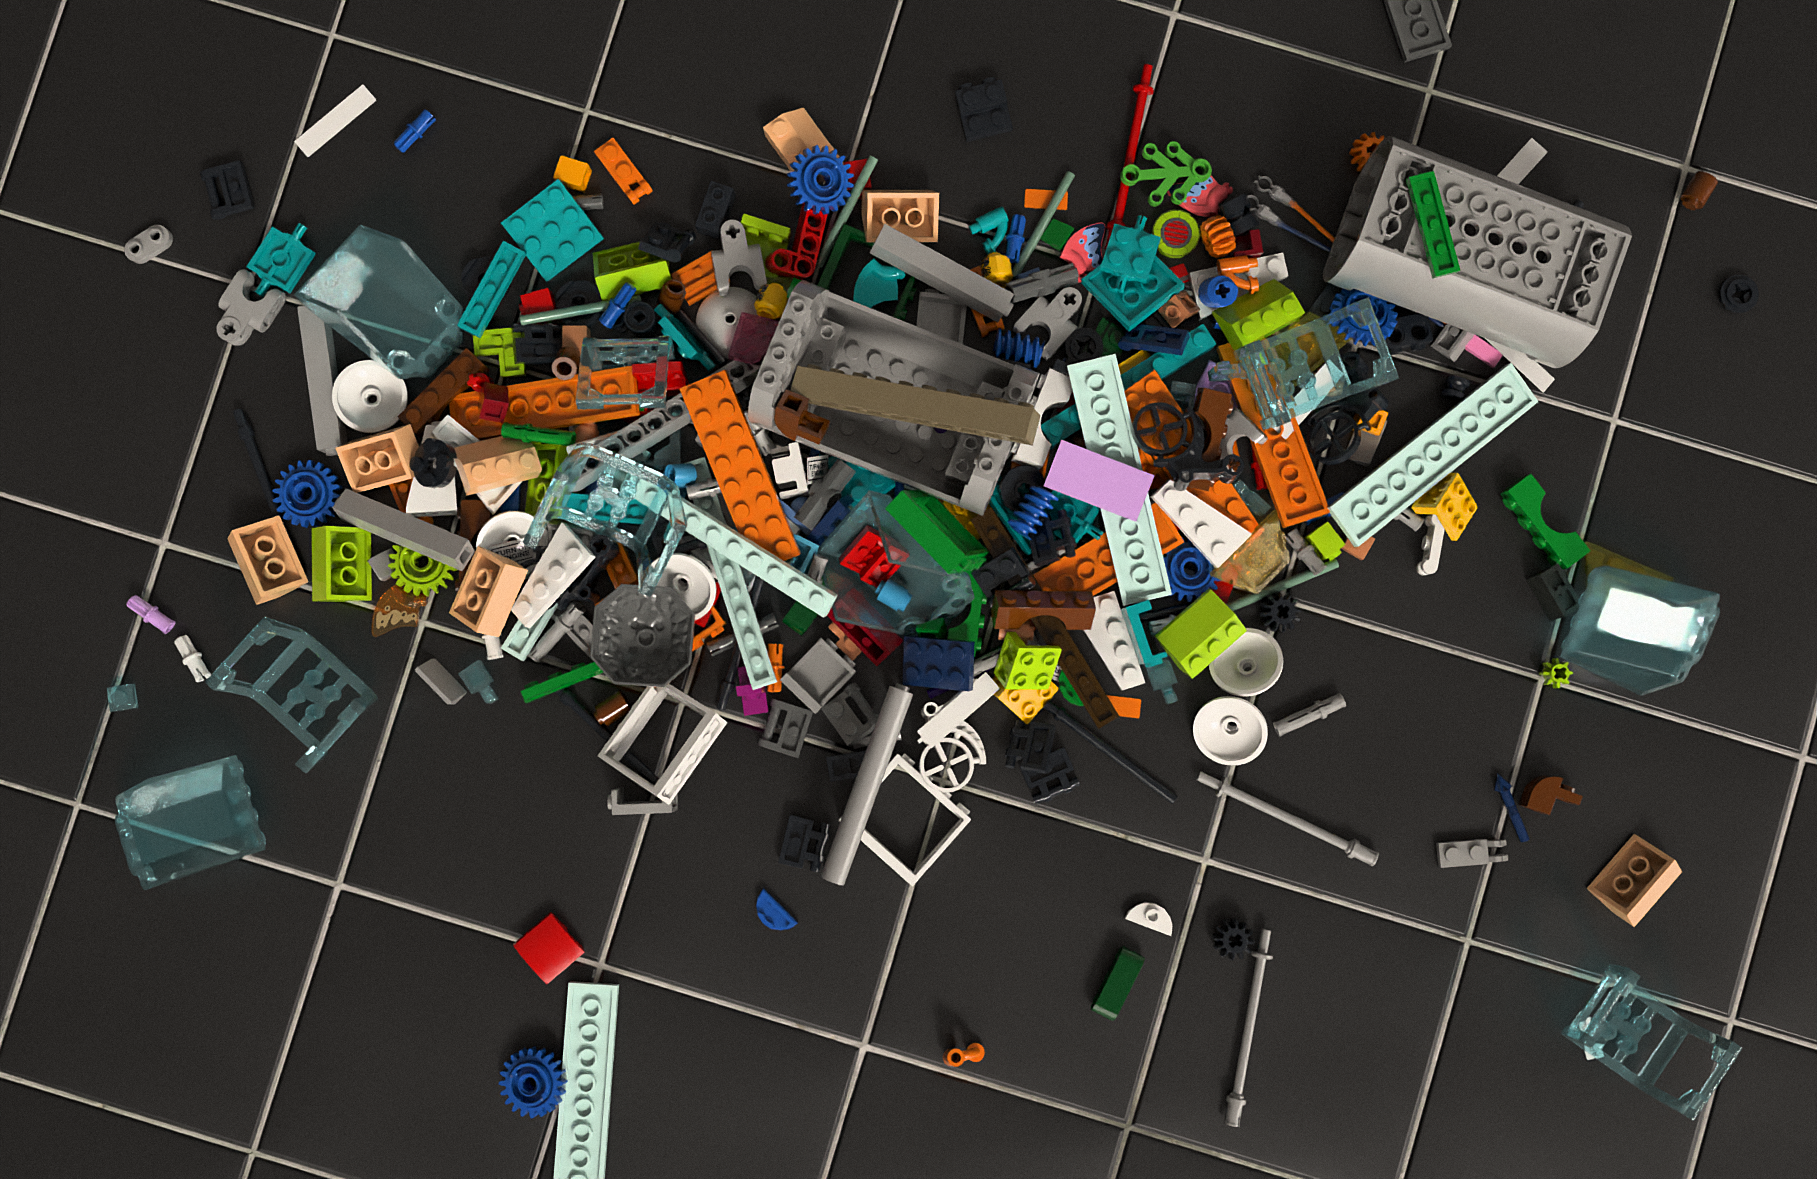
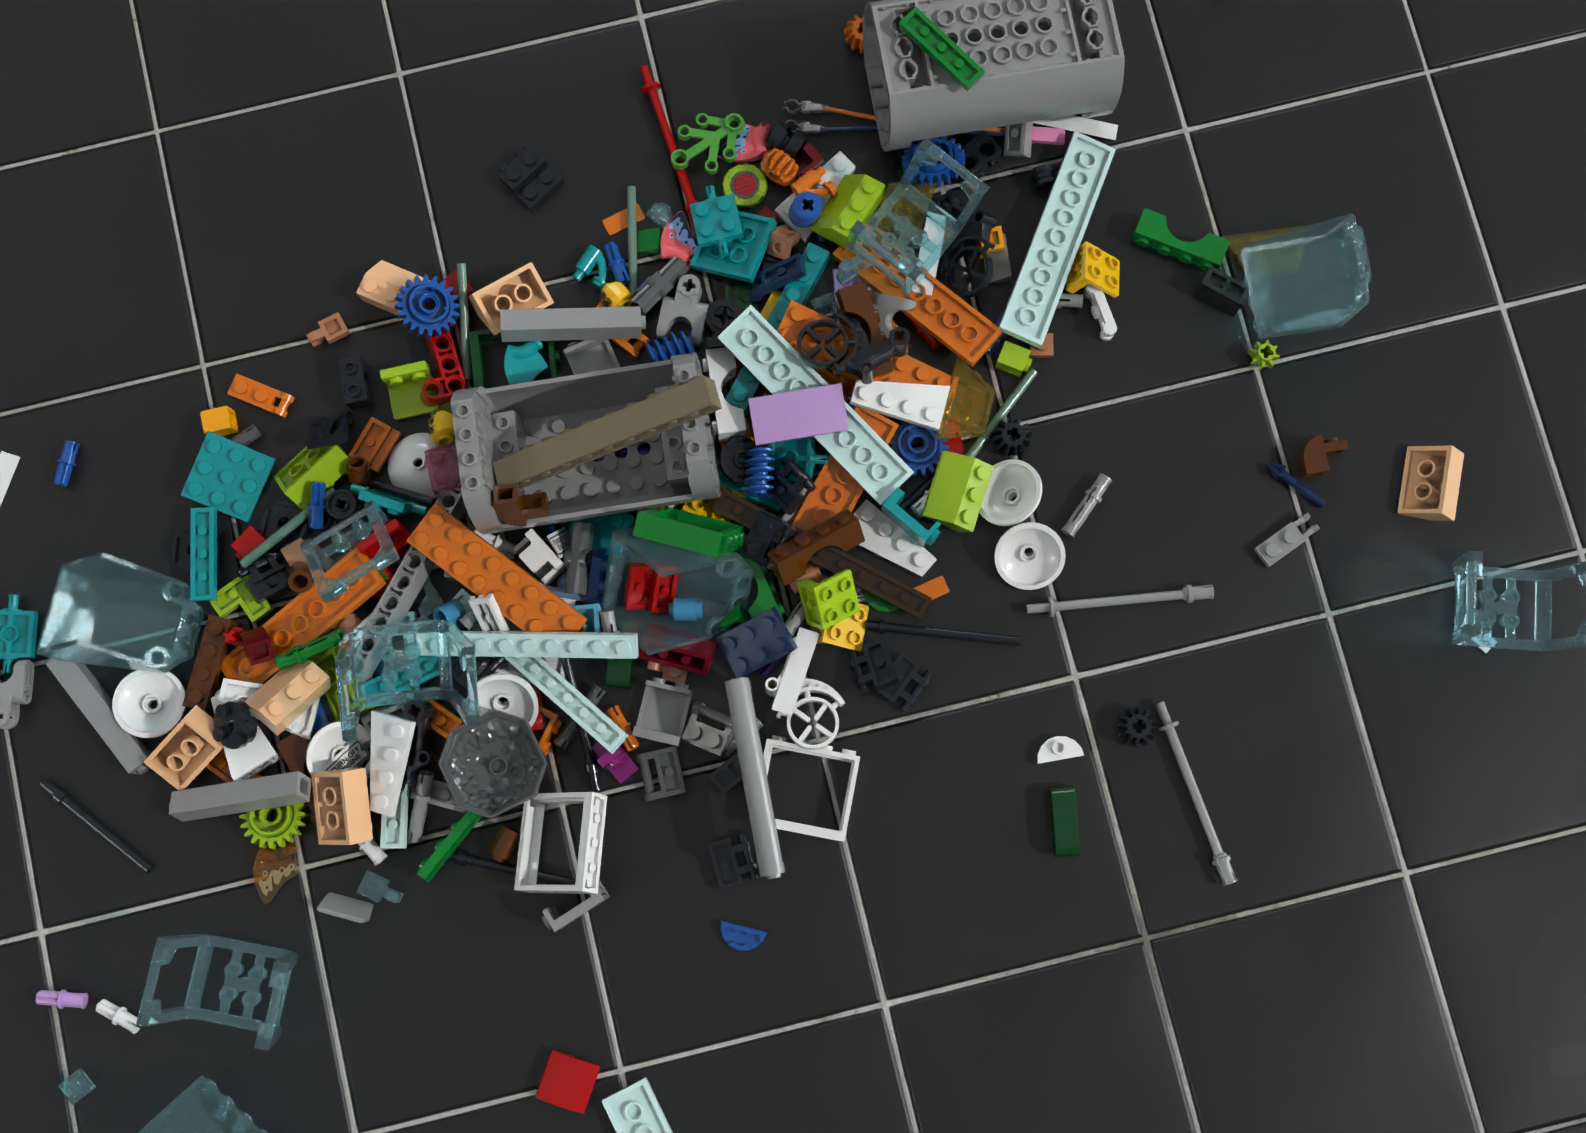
camera: 20 degrees left, 5 degrees down
(267, 559) = (137, 892): light nougat slope -> none
(293, 488) = (127, 816): blue gear -> none
(341, 564) = (204, 858): lime slope -> none
(380, 564) = (238, 840): light grey slope -> none
(719, 498) = (492, 612): none -> white tile
(722, 146) = (330, 328): none -> nougat plate
(736, 257) = (395, 409): light grey piece -> none
(956, 1057) = (966, 963): orange plant -> none
(1082, 215) = (660, 214): none -> clear light blue plate
(1162, 678) = (949, 547): clear light blue plate -> none
(1253, 501) = (936, 360): clear light blue plate -> none
(1305, 552) = (1003, 376): light grey pin -> none

